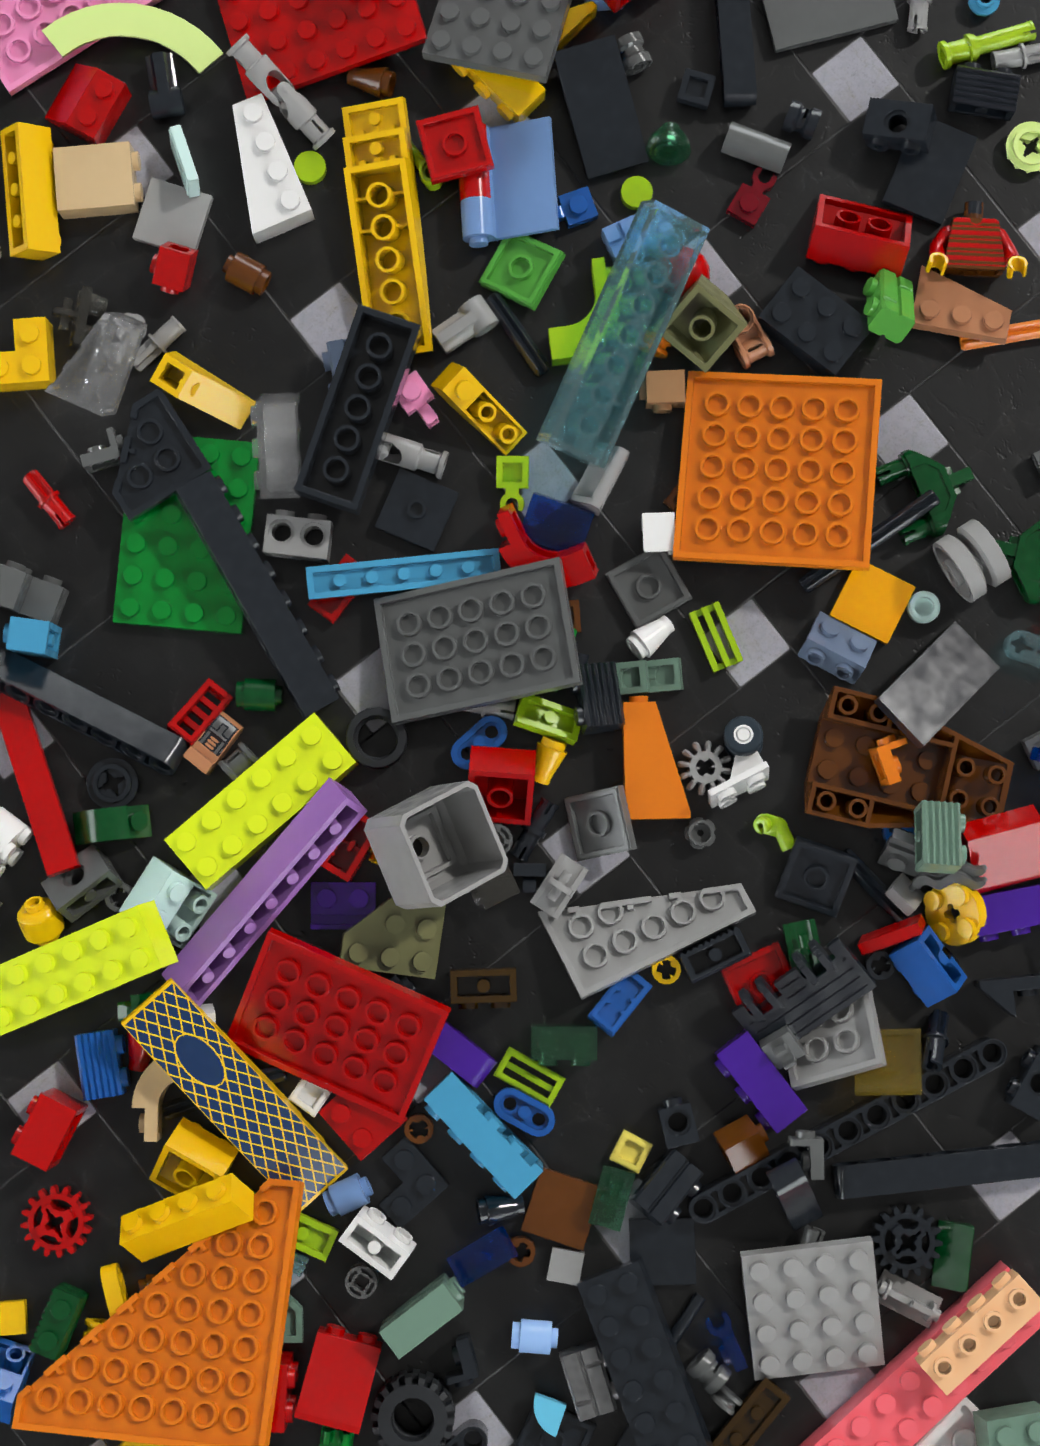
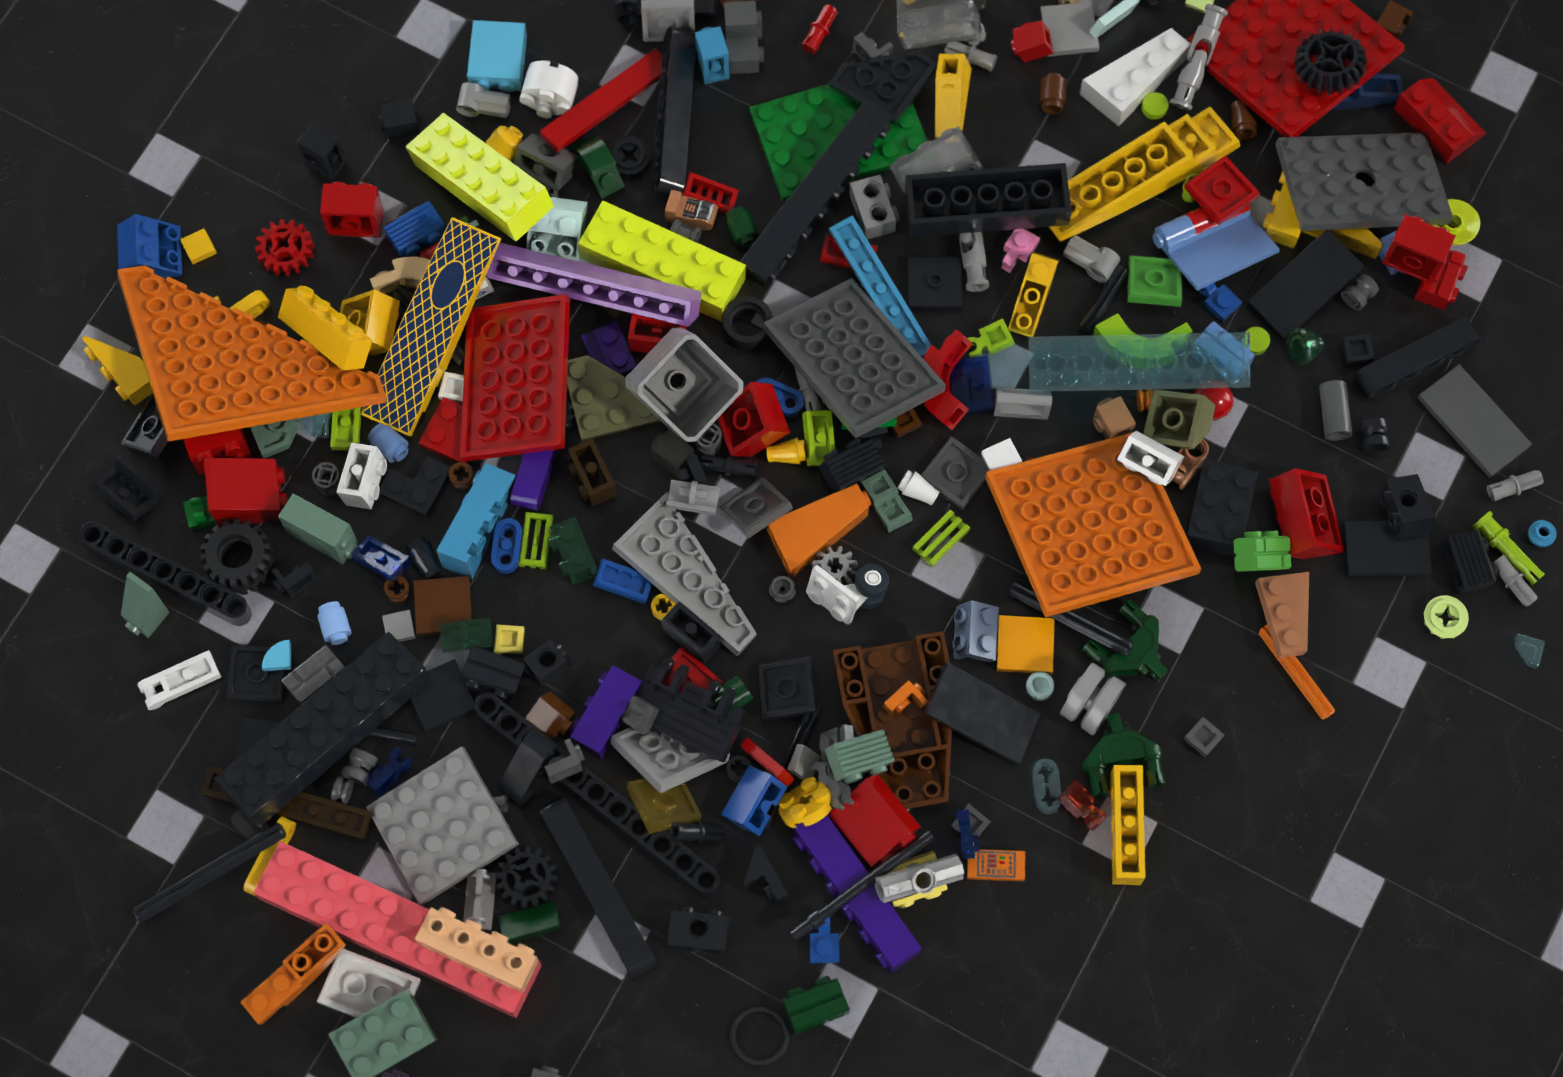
camera: 65 degrees right, 15 degrees down
(59, 1321) = (211, 276): dark green brick -> none
(737, 373) = (1150, 458): none -> white brick
(750, 201) = (1292, 426): dark red plate -> none
(775, 827) = (812, 641): lime arm -> none
(974, 247) = (1341, 601): torso -> none

